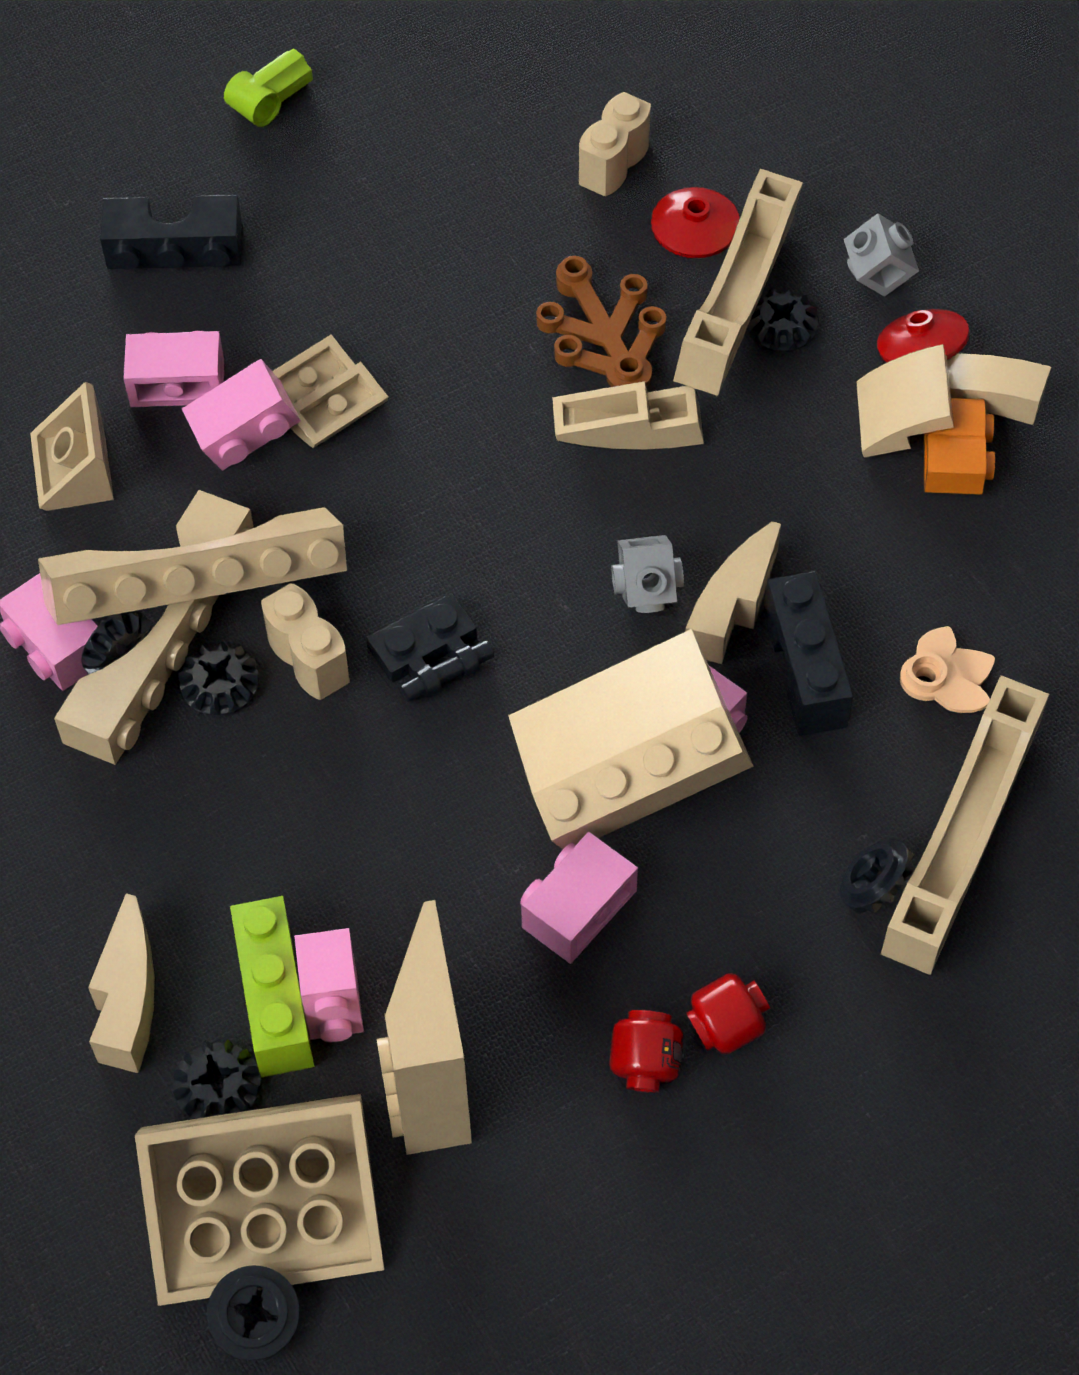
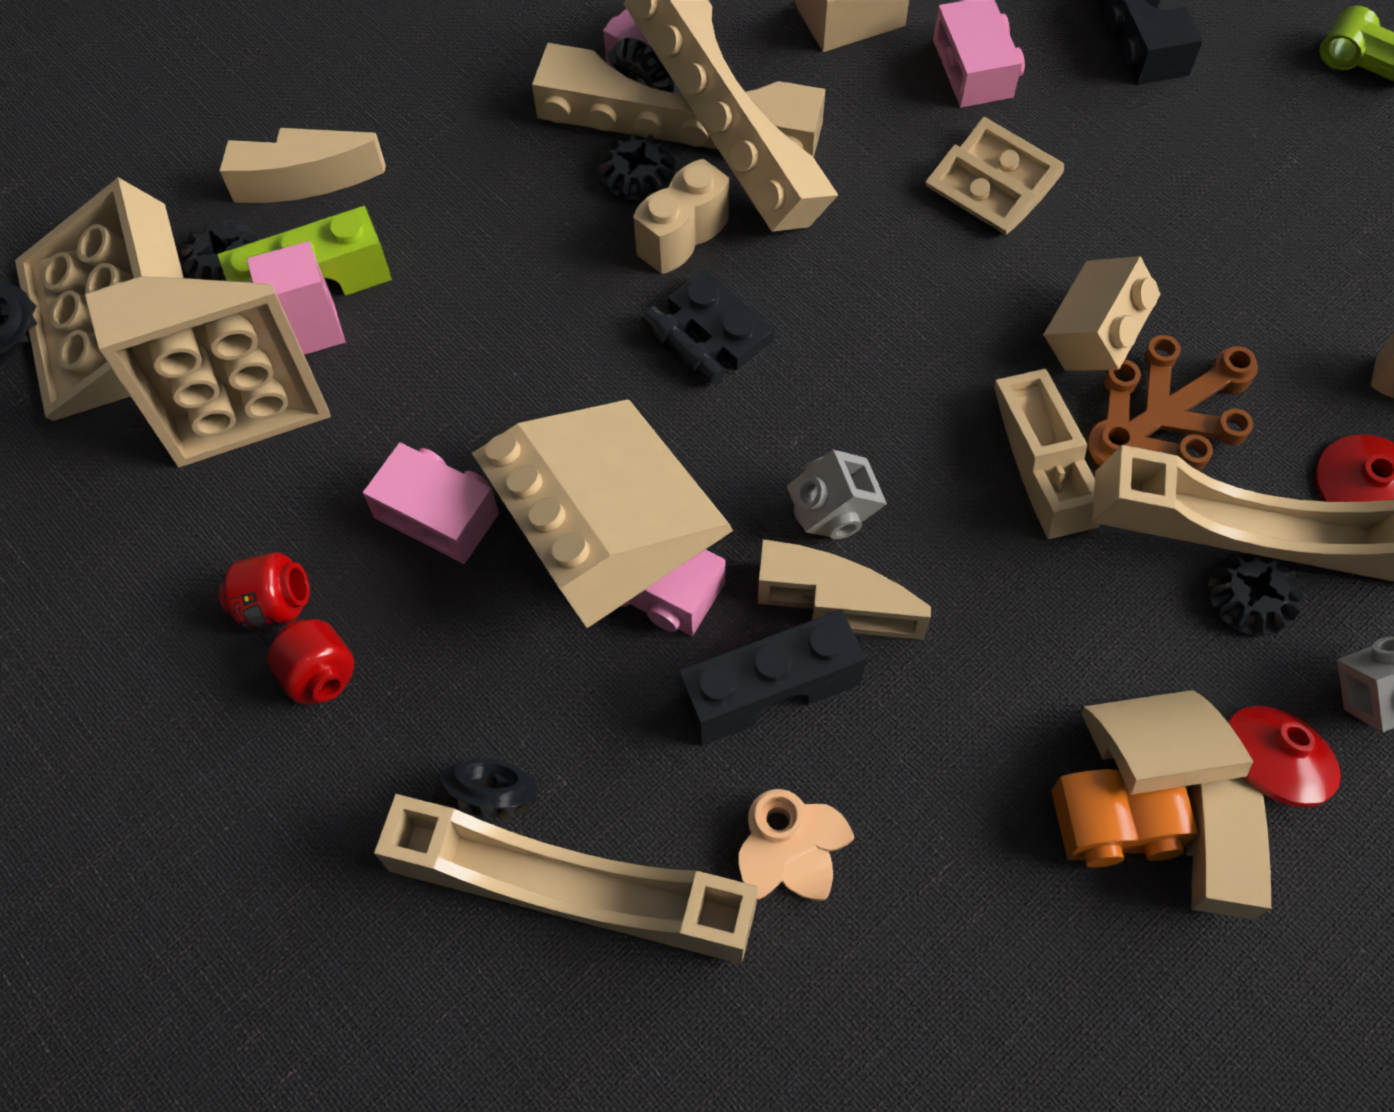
camera: 80 degrees right, 5 degrees up
(241, 415) = (930, 106): bright pink brick -> none
(509, 342) = (1102, 314): none -> tan brick

